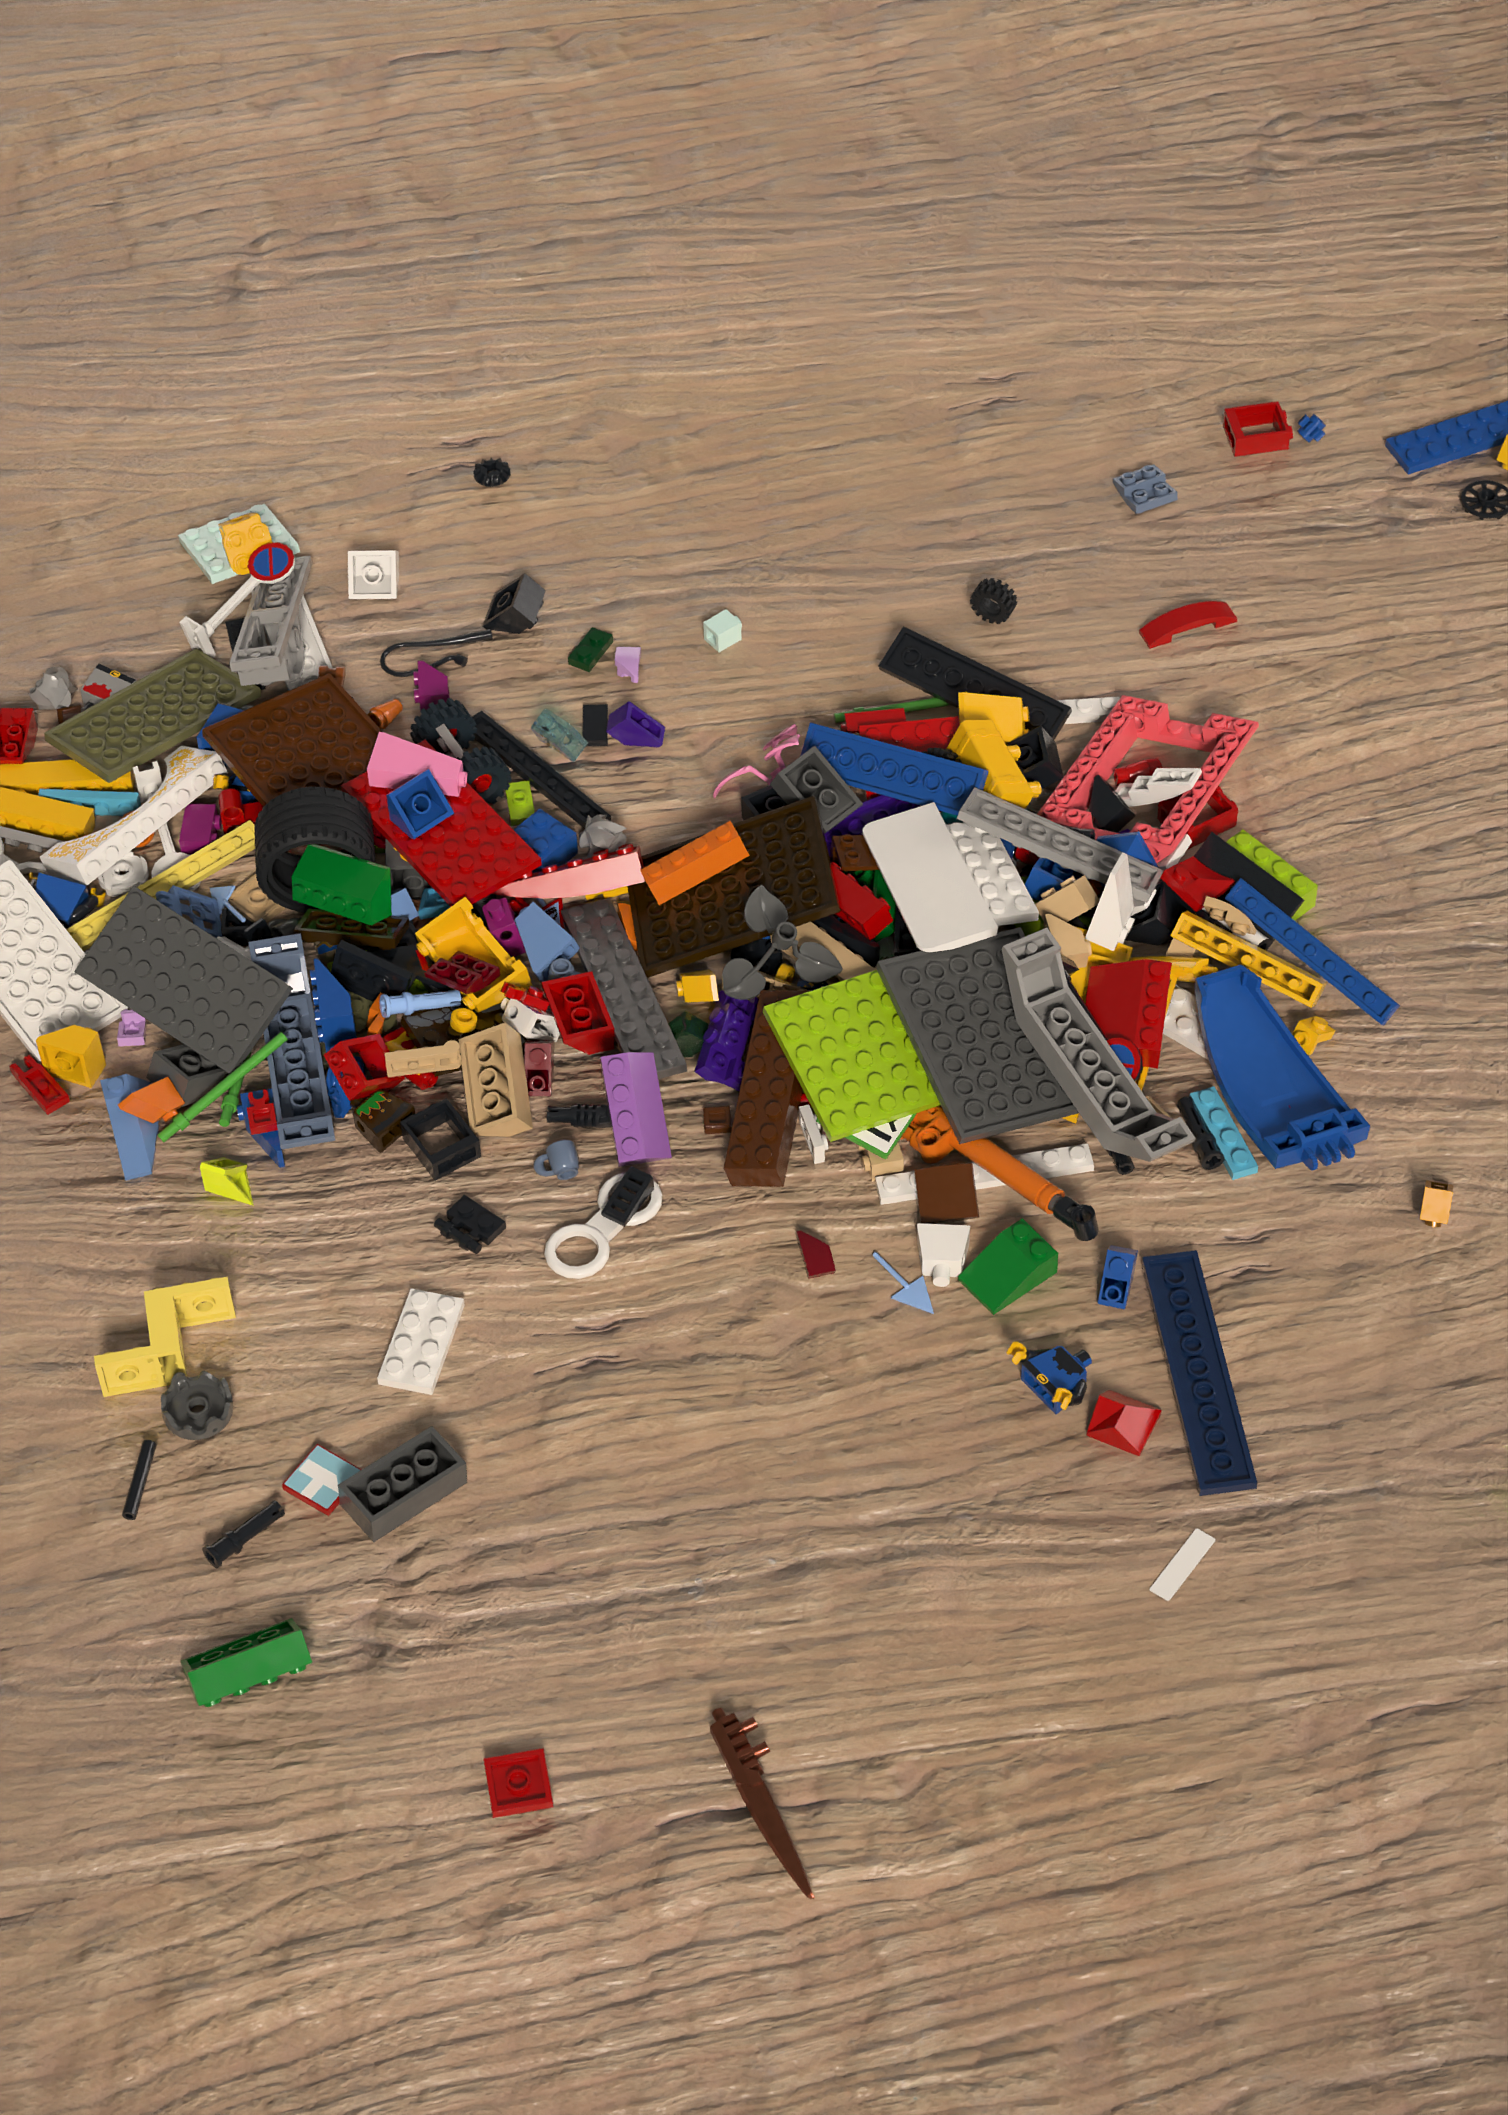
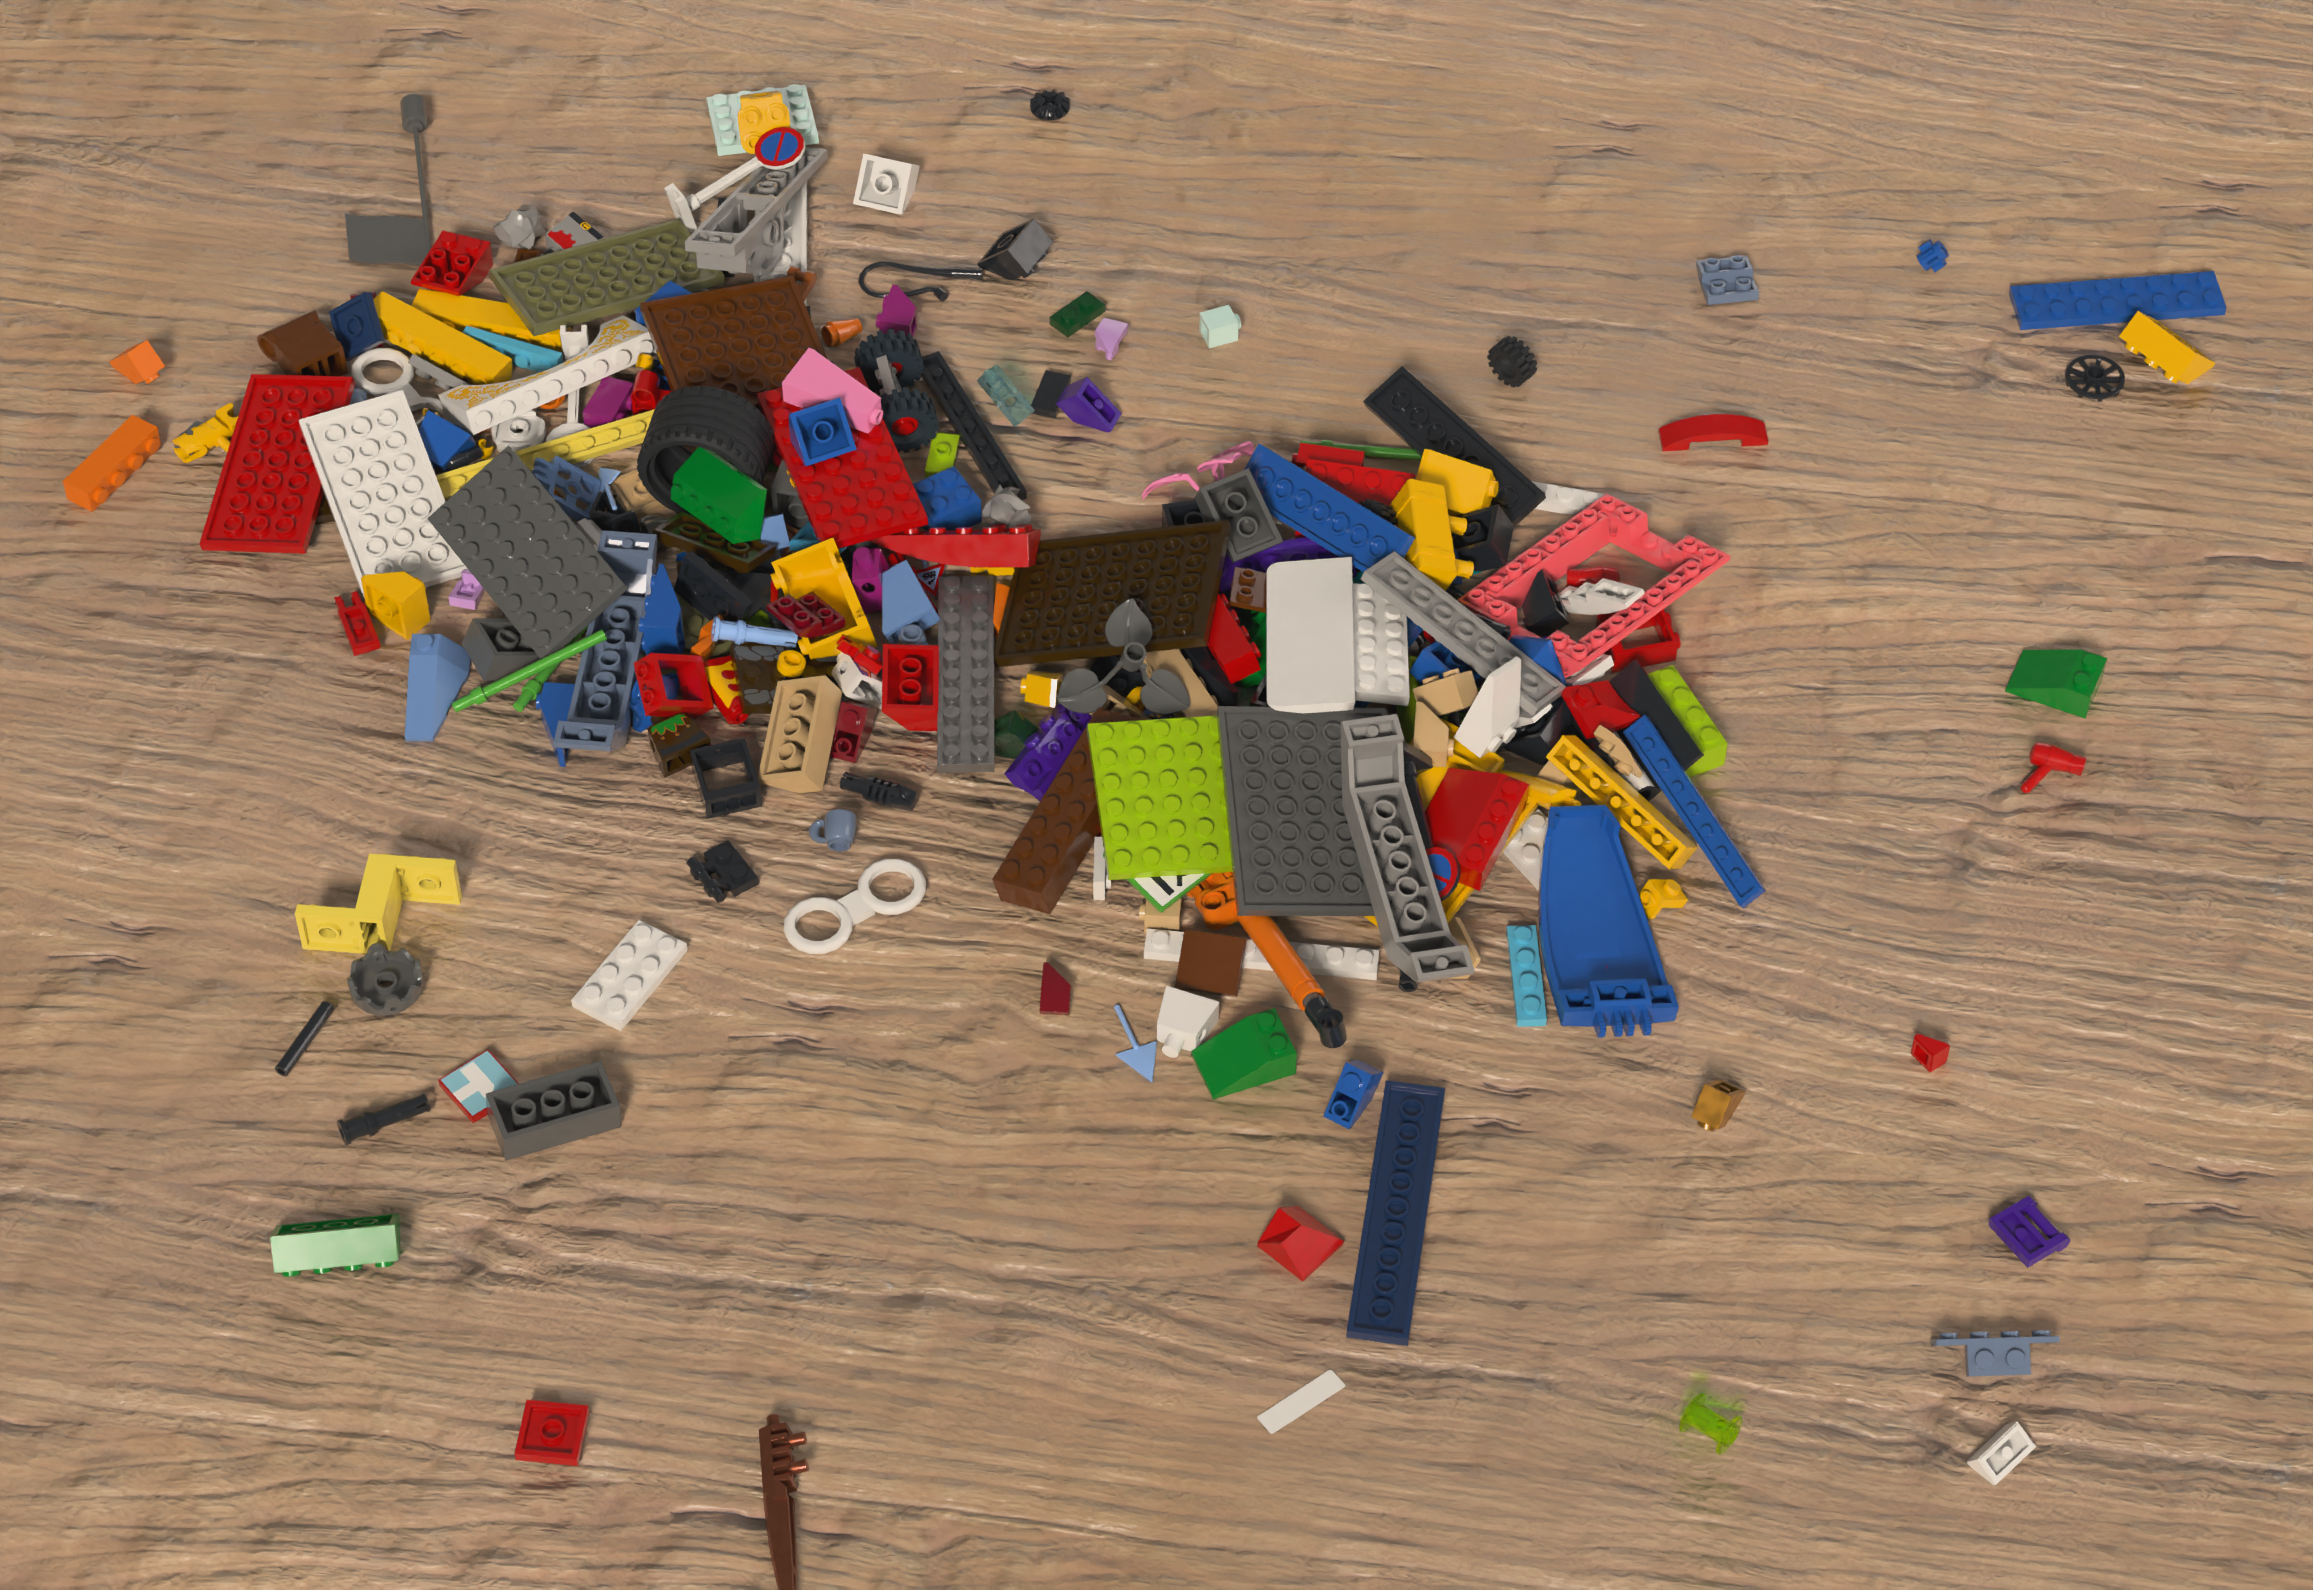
camera: 15 degrees right, 0 degrees up
(154, 1102) = (456, 668): orange slope -> none
(227, 1179) = (502, 763): neon yellow slope -> none
(261, 1114) = (554, 707): red plate -> none
(423, 1059) = (732, 693): tan plate -> none
(633, 1180) = (897, 868): black slope -> none
(635, 1108) = (926, 795): medium lavender slope -> none
(694, 862) = (1083, 560): orange brick -> none
(717, 1120) = (1009, 828): reddish brown tile -> none
(1053, 1374) = (1244, 1174): torso -> none
(1204, 1141) = (1500, 978): black pin -> none
(1254, 415) = (1874, 228): red window -> none

